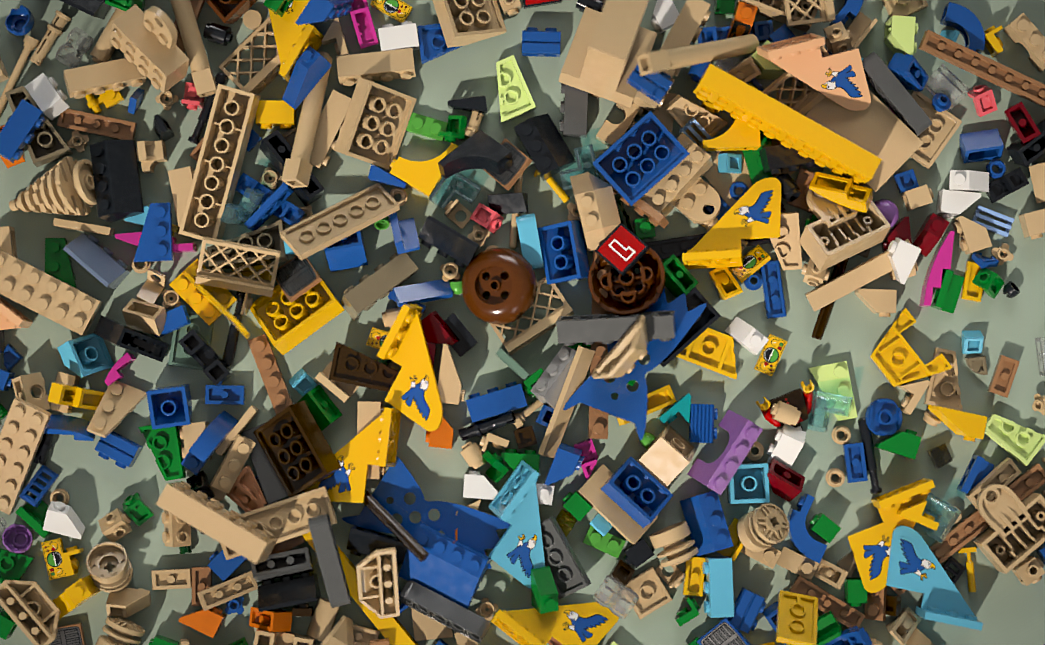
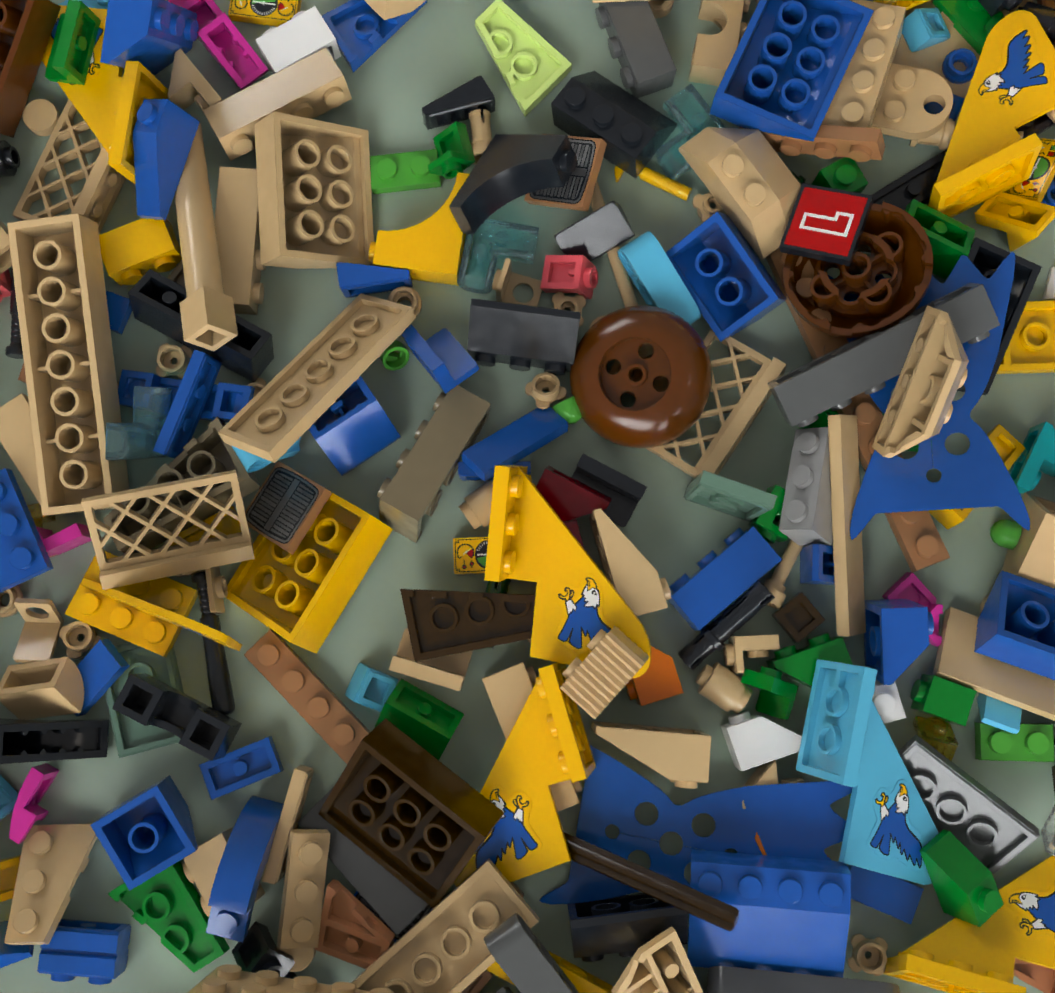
camera: 25 degrees left, 5 degrees down
(414, 421) = (604, 671): none -> tan brick
(429, 471) = (672, 752): none -> tan slope
(506, 583) = (885, 893): none -> blue tile

